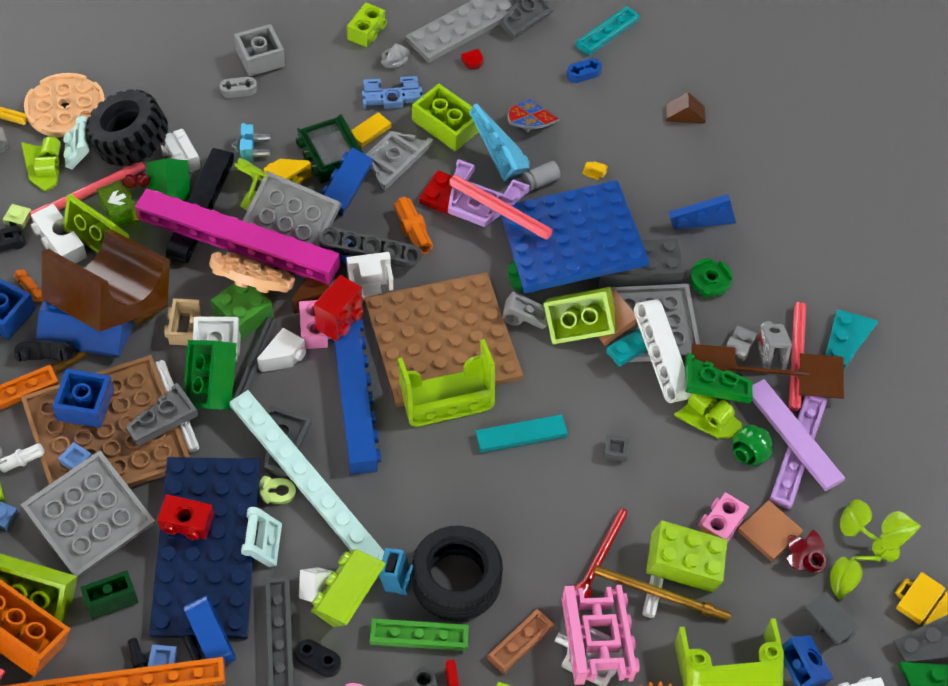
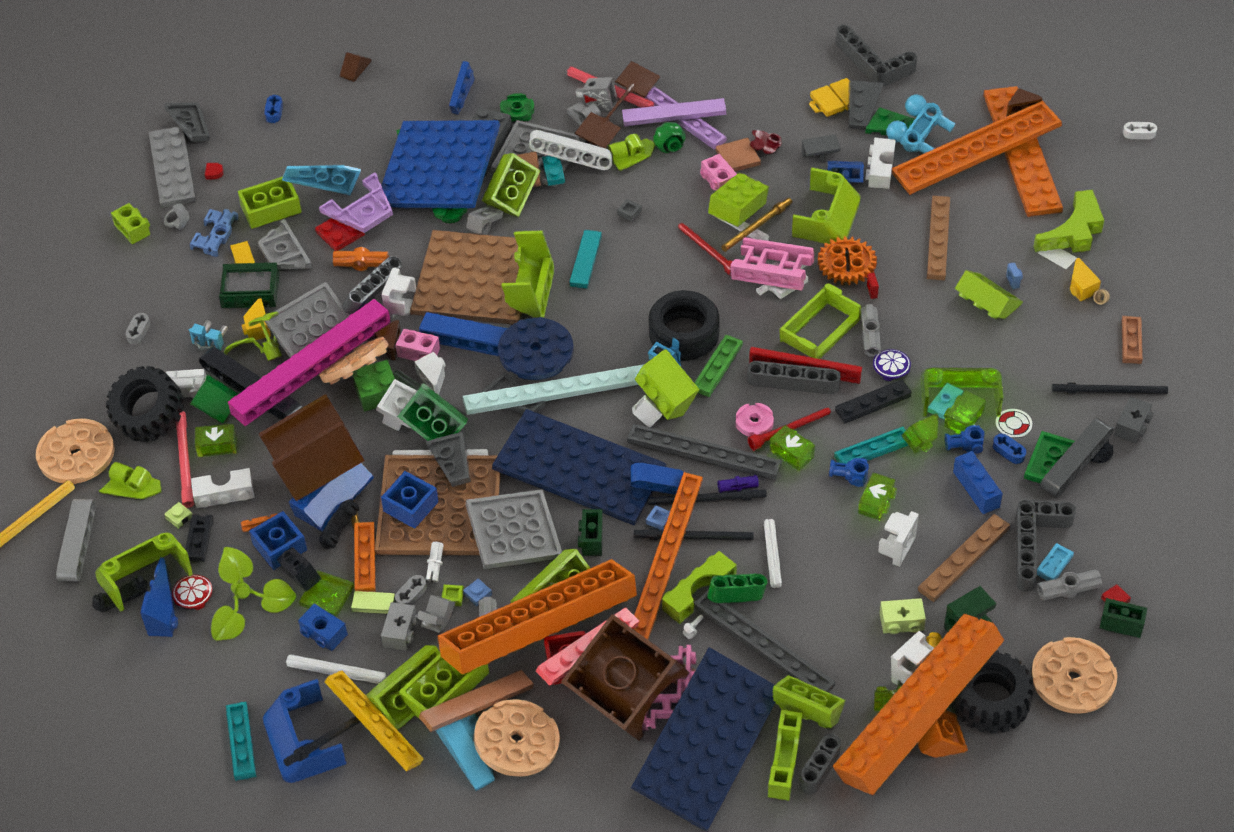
camera: 60 degrees left, 5 degrees down
(74, 456) = (459, 522): medium blue plate -> none
(76, 143) = (128, 453): light aqua plate -> none
(87, 223) = (235, 454): lime slope -> none
(131, 181) = (201, 419): dark red piece -> none
(176, 508) = (547, 465): red brick -> none
(179, 308) = (366, 428): tan window -> none
(260, 50) = (112, 298): light grey brick -> none
(267, 483) = (558, 417): yellowish green piece -> none
(267, 538) = (589, 427): light aqua plate -> none
(317, 657) = (706, 428): black plate -> none
(338, 308) = (427, 312): red brick -> none
(344, 454) = (519, 339): none -> dark blue plate
(348, 178) = (292, 275): blue brick -> none
(501, 207) = (387, 193): coral axle -> none
(520, 641) = (750, 314): nougat tile -> none
(530, 116) = (299, 155): shield -> none
(541, 175) = (363, 161): light grey piece -> none
(595, 170) = (374, 138): yellow piece -> none
(607, 31) = (242, 81): teal tile -> none
(709, 381) = (614, 133): green wing -> none
(848, 334) = (608, 56): teal wing -> none
(896, 531) = (754, 106): lime plant -> none

